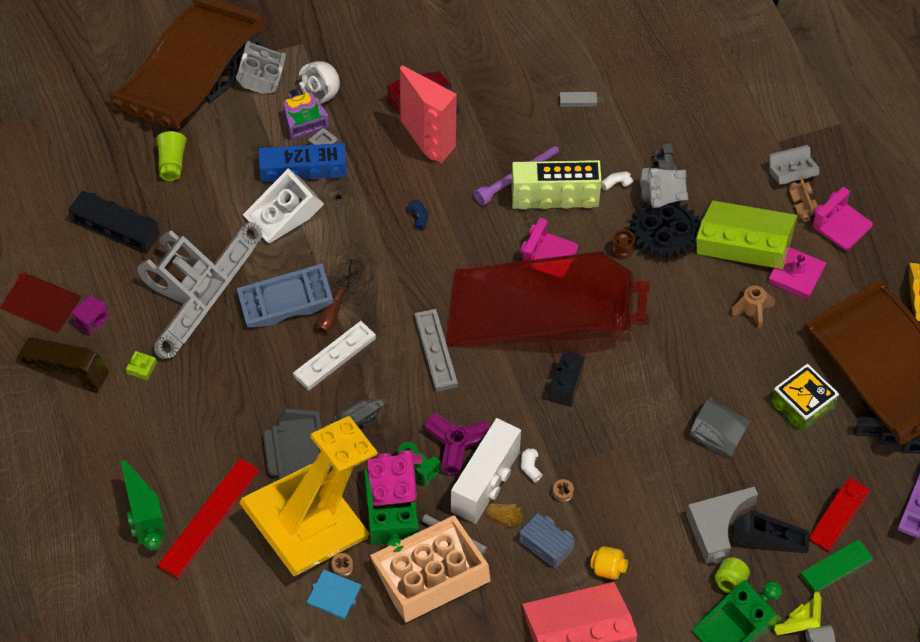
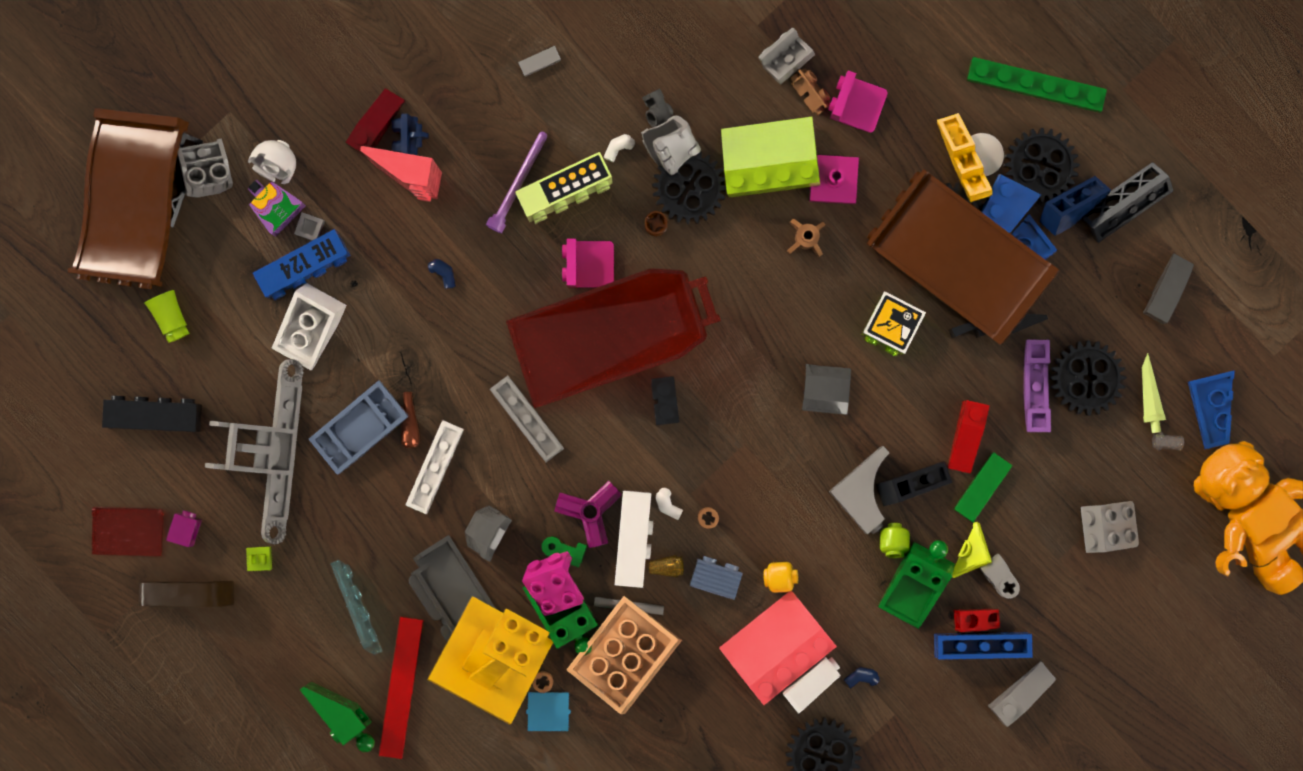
camera: 25 degrees left, 30 degrees up
(206, 433) = (357, 611): none -> clear light blue wing

